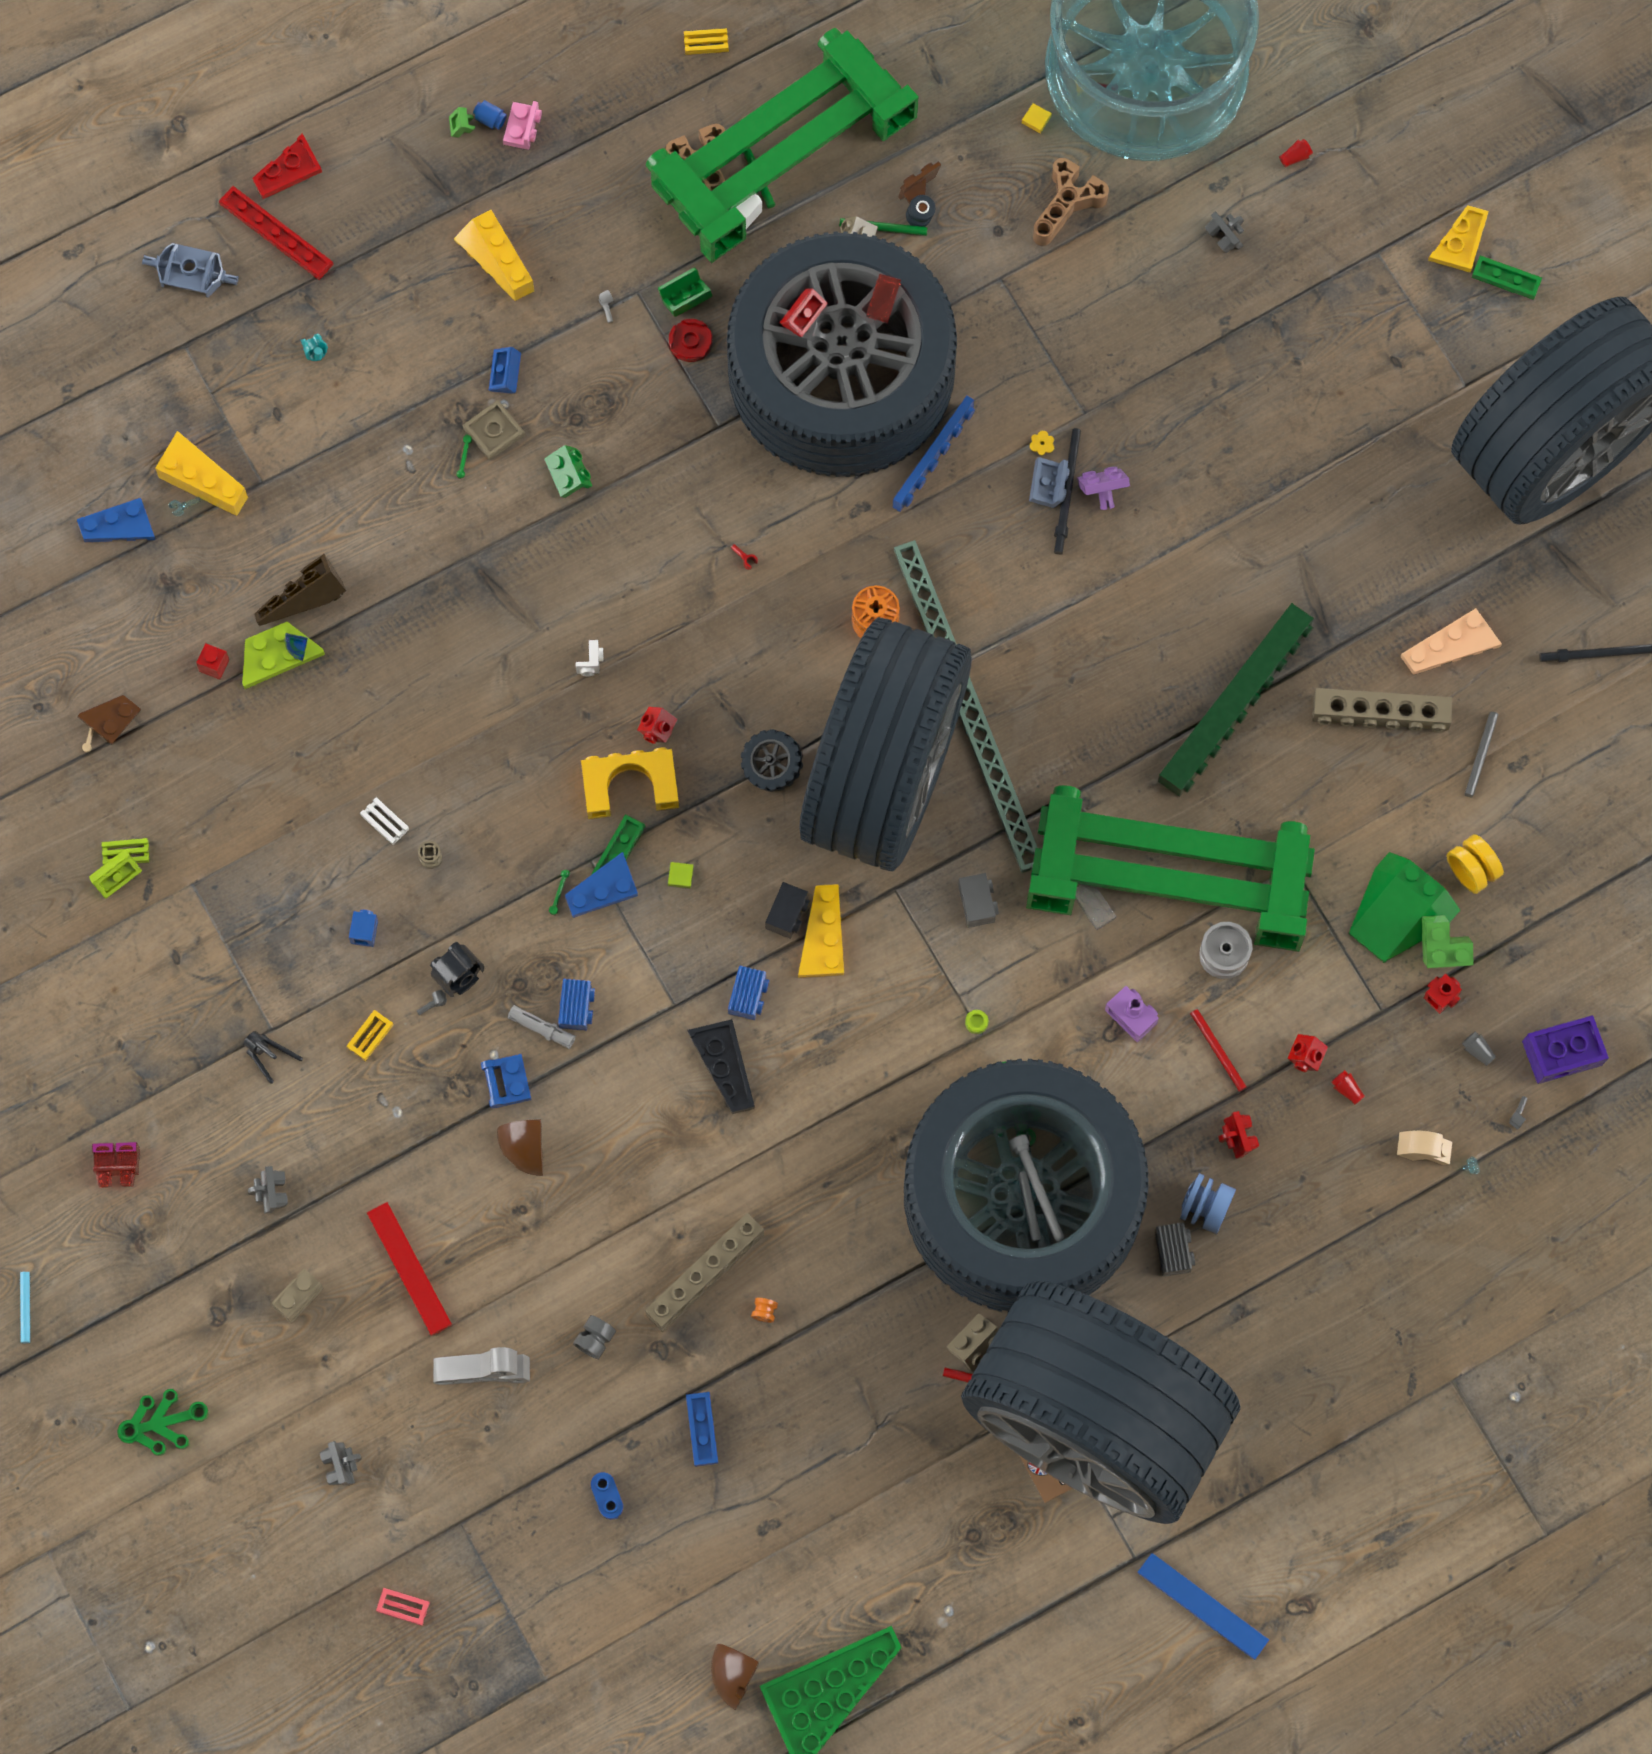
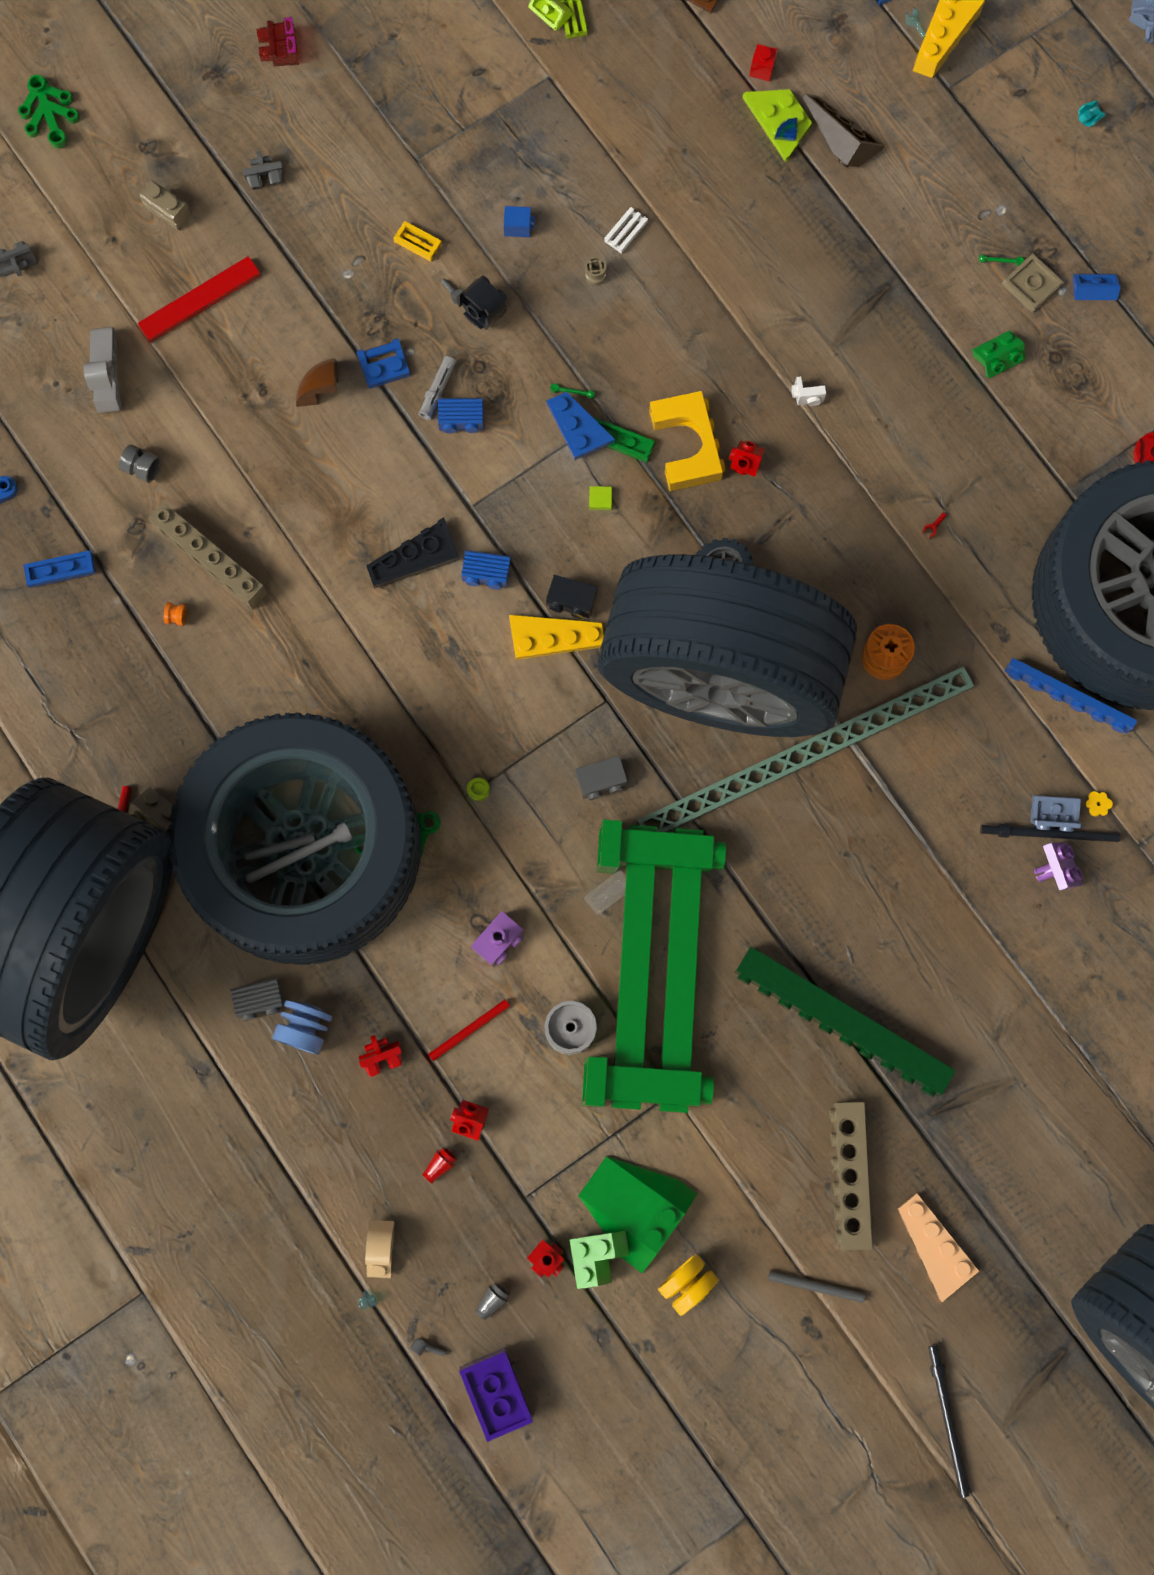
camera: 85 degrees right, 5 degrees up
(258, 1044) = (398, 146): black plant -> none

